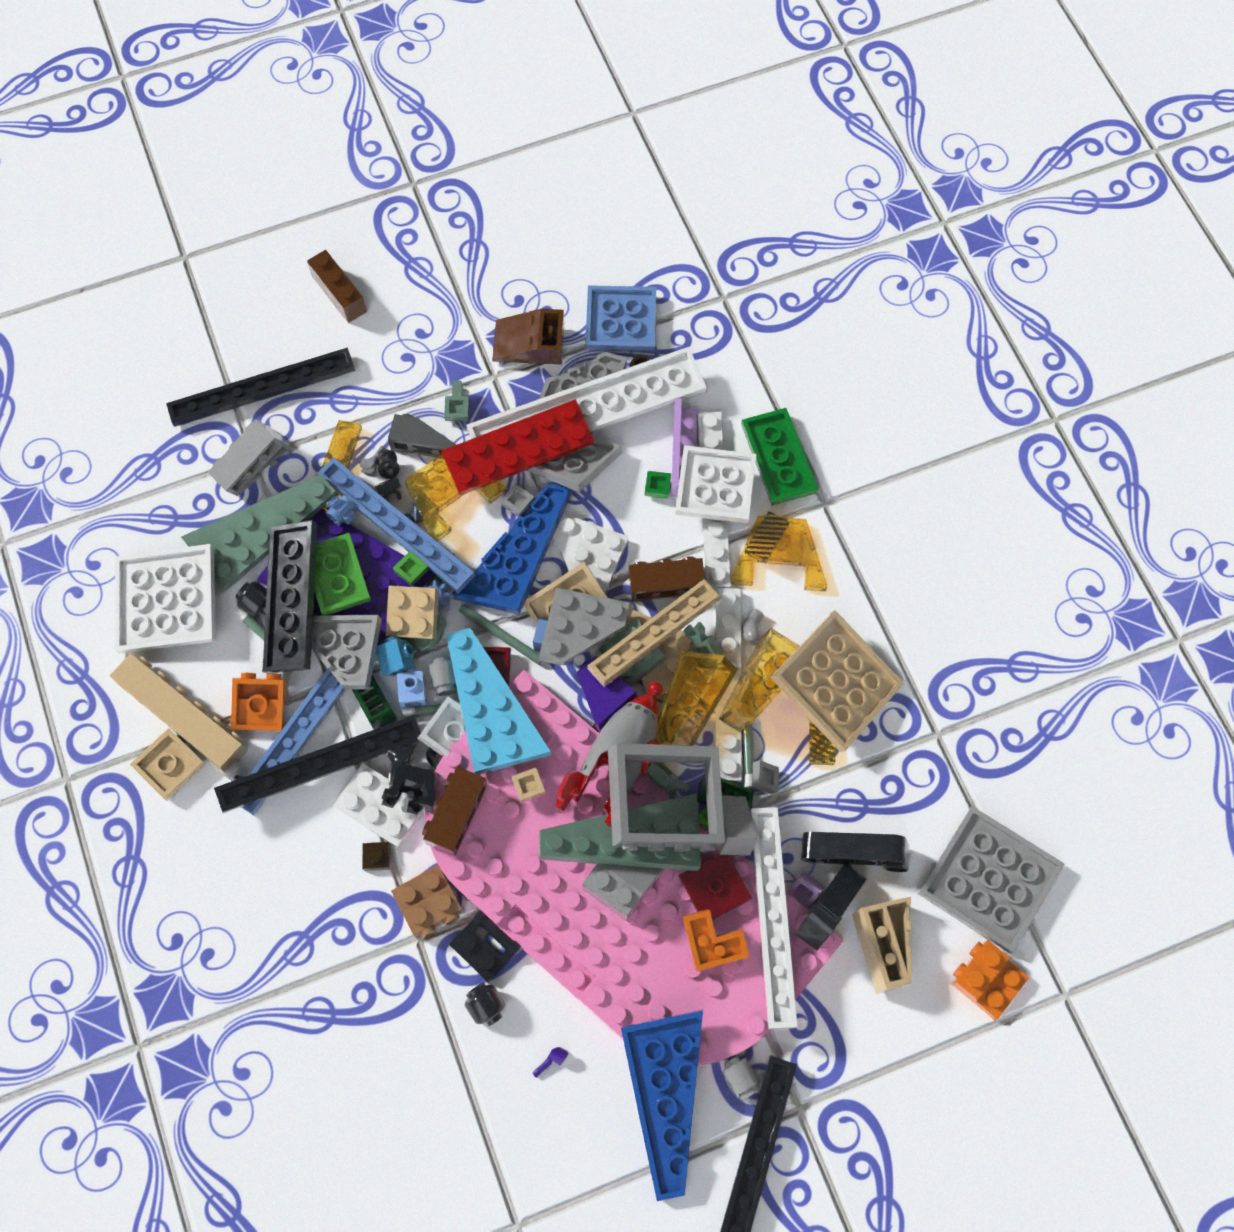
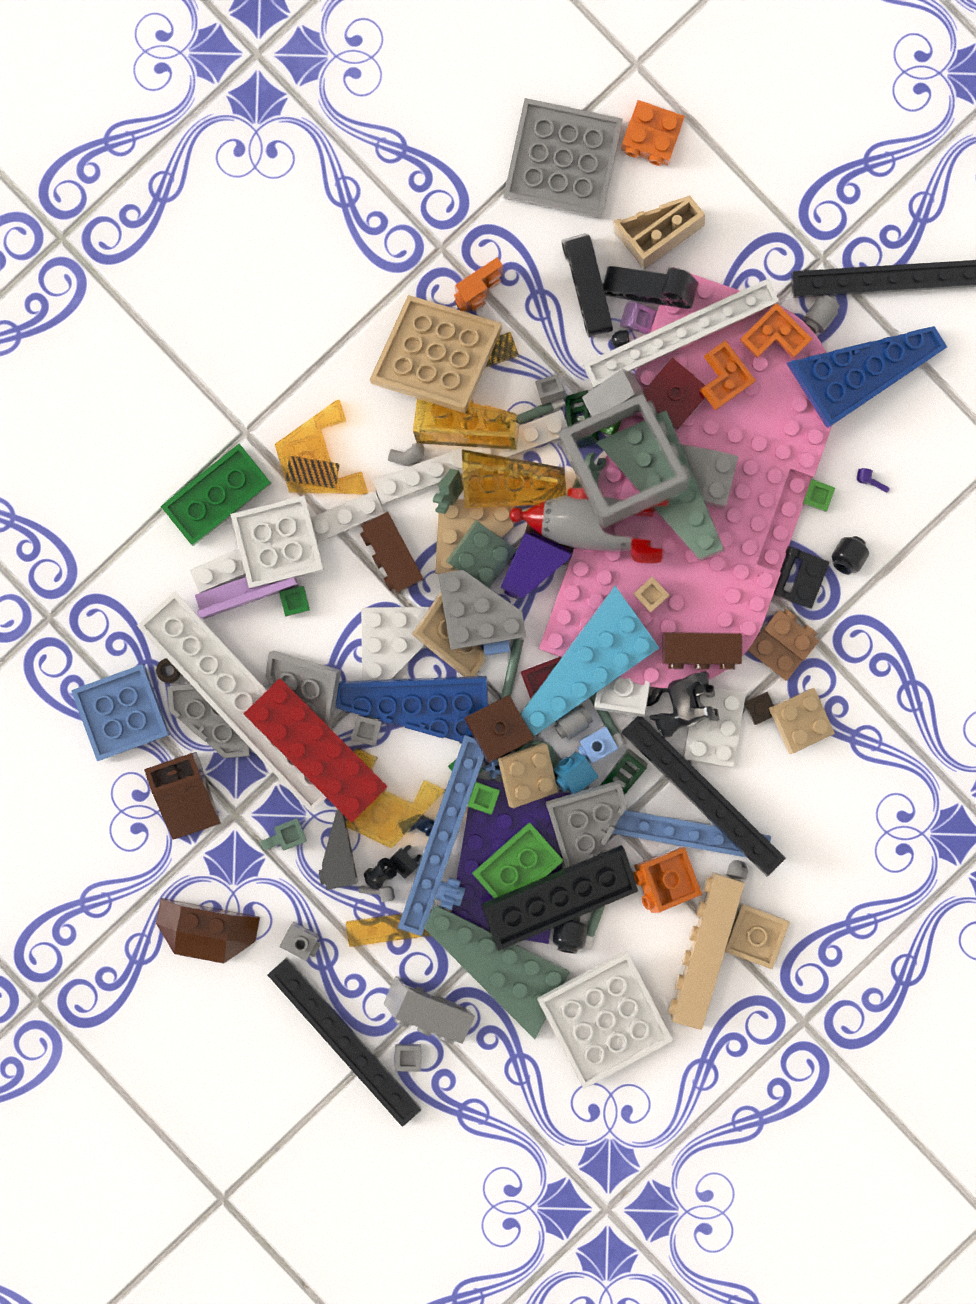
camera: 110 degrees left, 20 degrees up
(221, 430) = (408, 1057): none -> light grey plate
(337, 286) = (200, 1020): reddish brown brick -> none
(345, 888) = (801, 721): none -> tan plate
(362, 382) = (300, 941): none -> light grey brick
(408, 318) = (205, 931): none -> reddish brown wedge
(465, 602) = (498, 729): none -> reddish brown plate
(557, 997) = (819, 495): none -> bright green plate
(653, 632) = (459, 538): tan tile -> none
(745, 1013) = (778, 327): none -> orange plate
(790, 864) = (620, 338): none -> black hinge
(888, 740) = (472, 290): none -> orange plate

